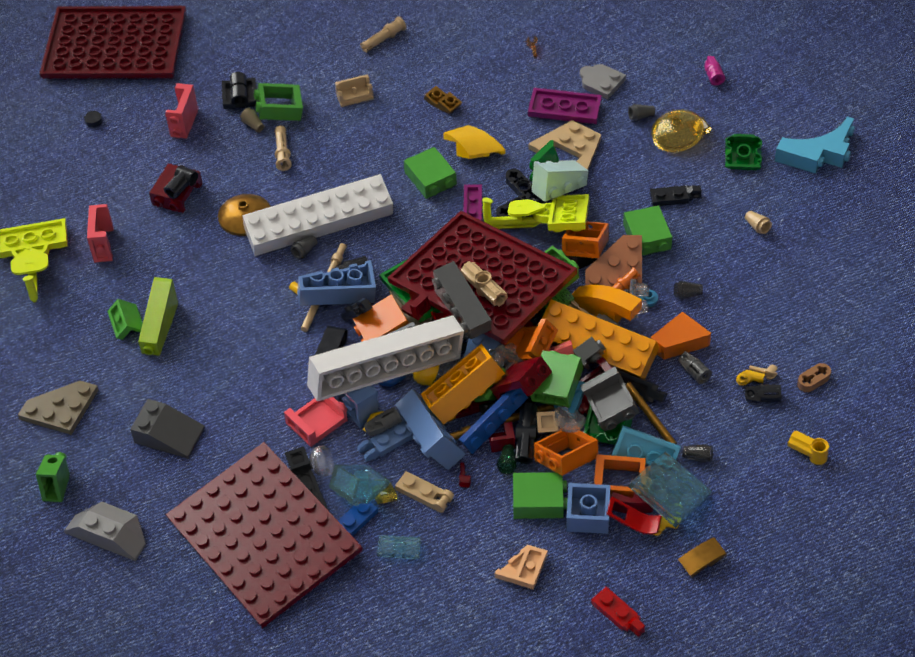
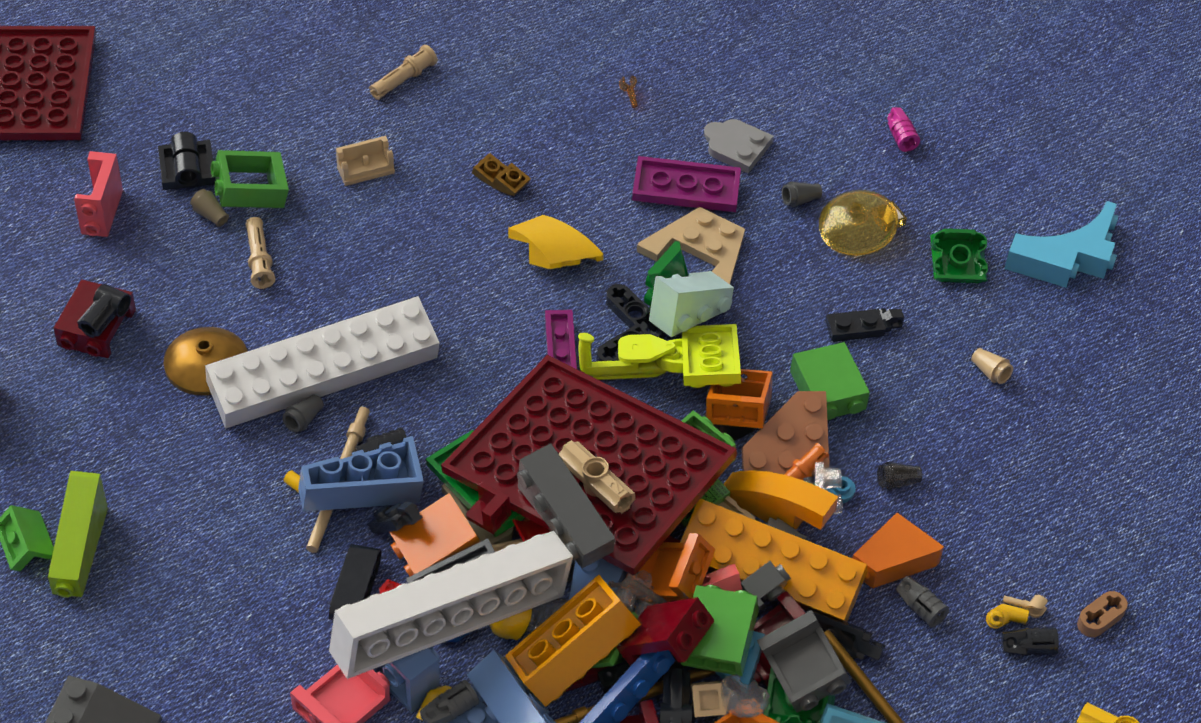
camera: 10 degrees left, 0 degrees up
(430, 172) = (491, 291): bright green brick -> none

